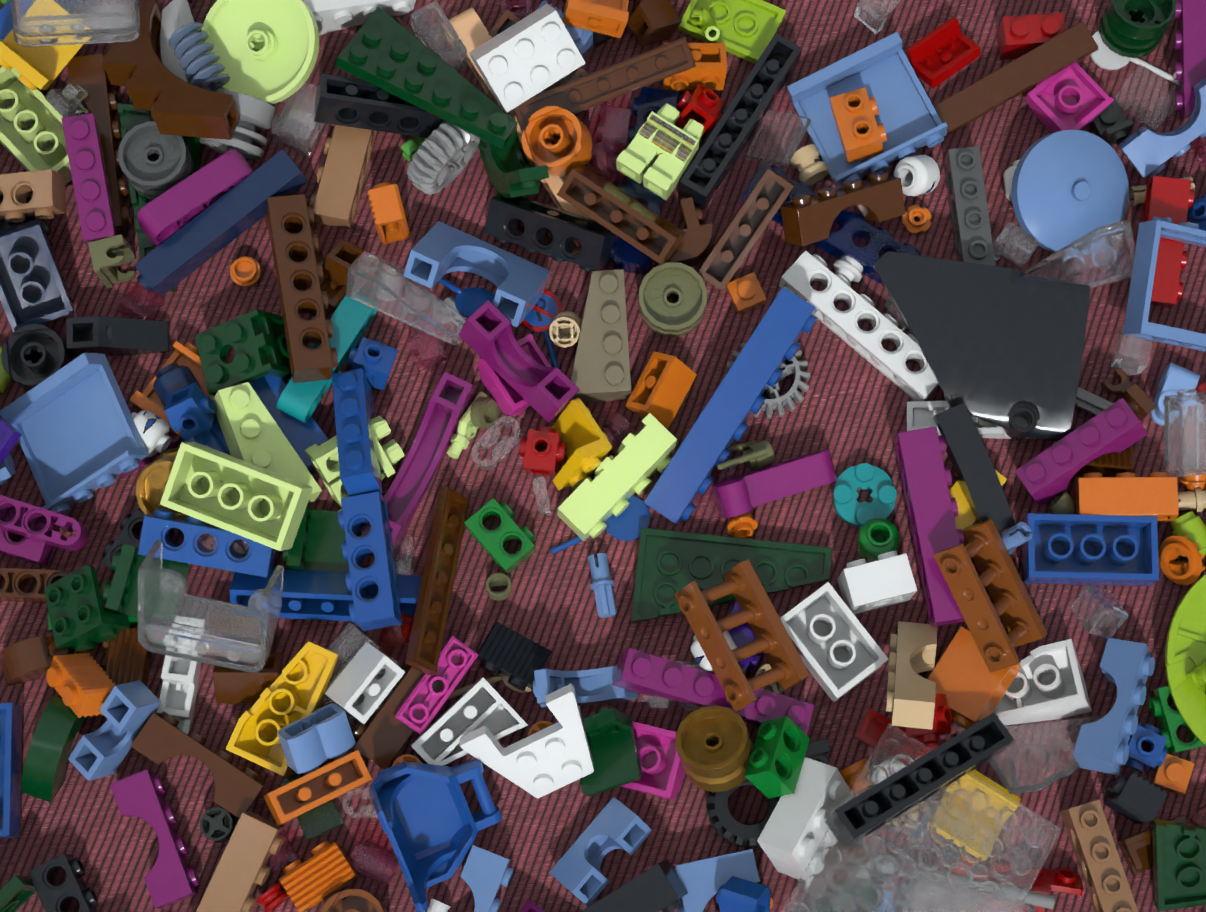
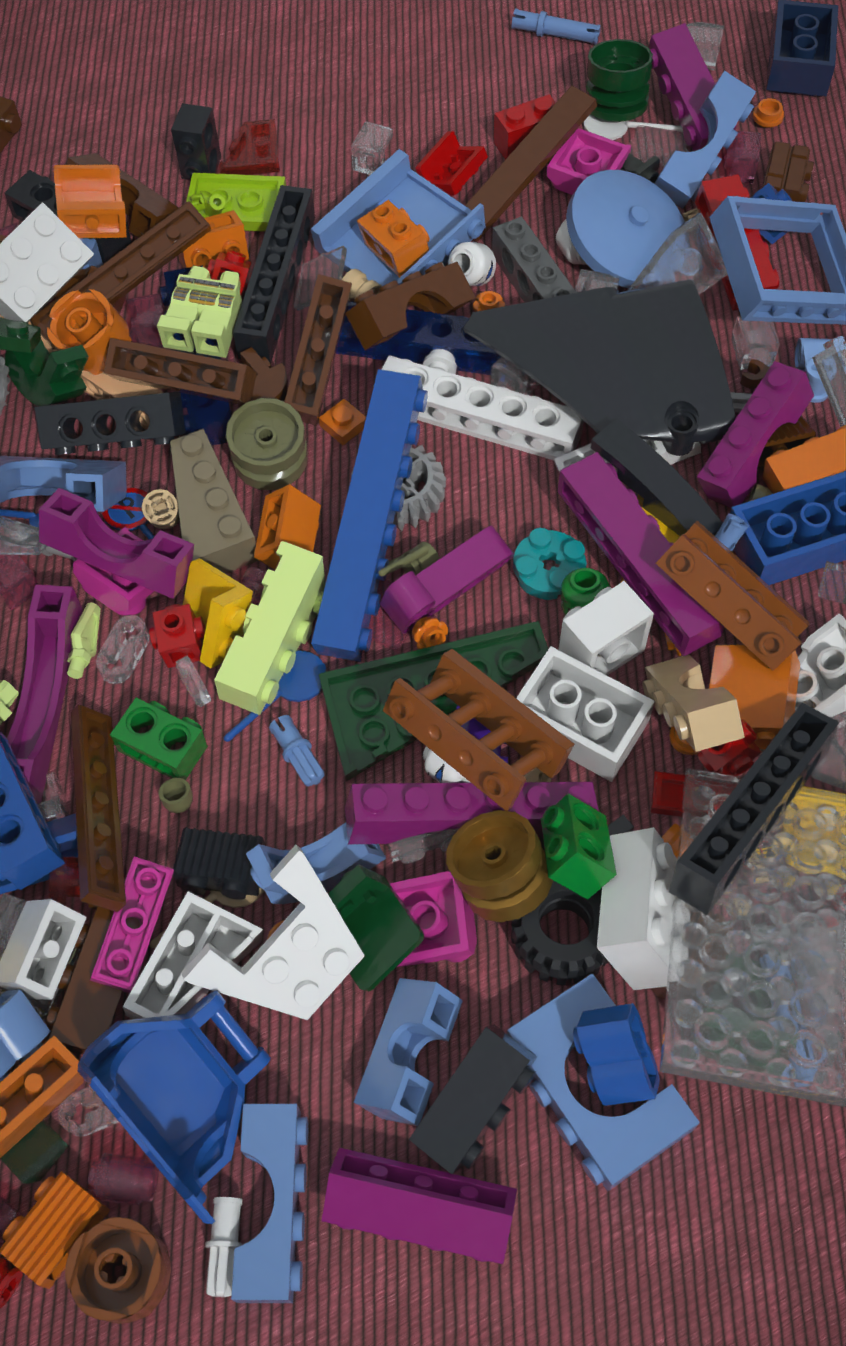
camera: 20 degrees left, 15 degrees down
(484, 412) = (97, 620): olive tile -> none

